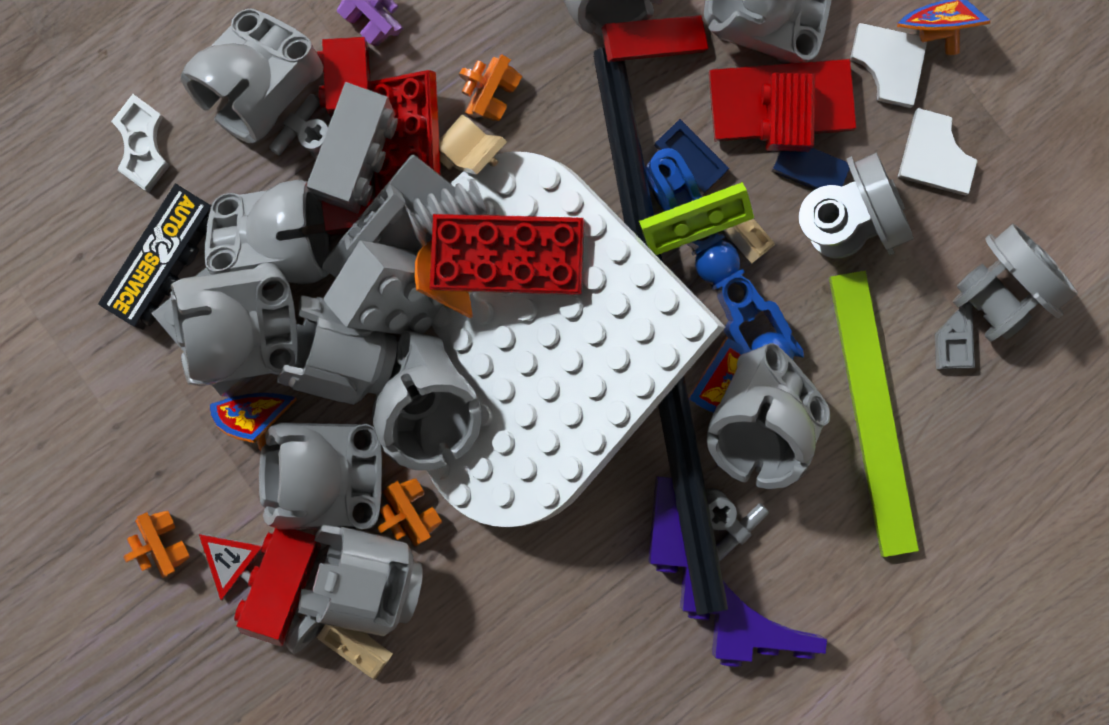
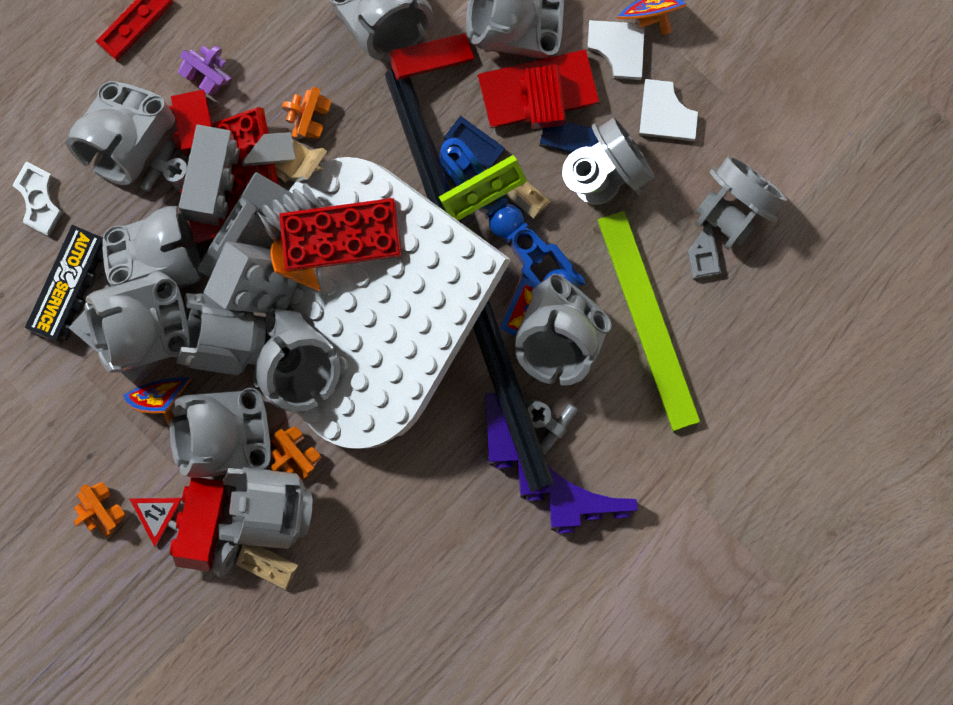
camera: 10 degrees left, 5 degrees down
(437, 127) = (271, 150): none -> light grey tile

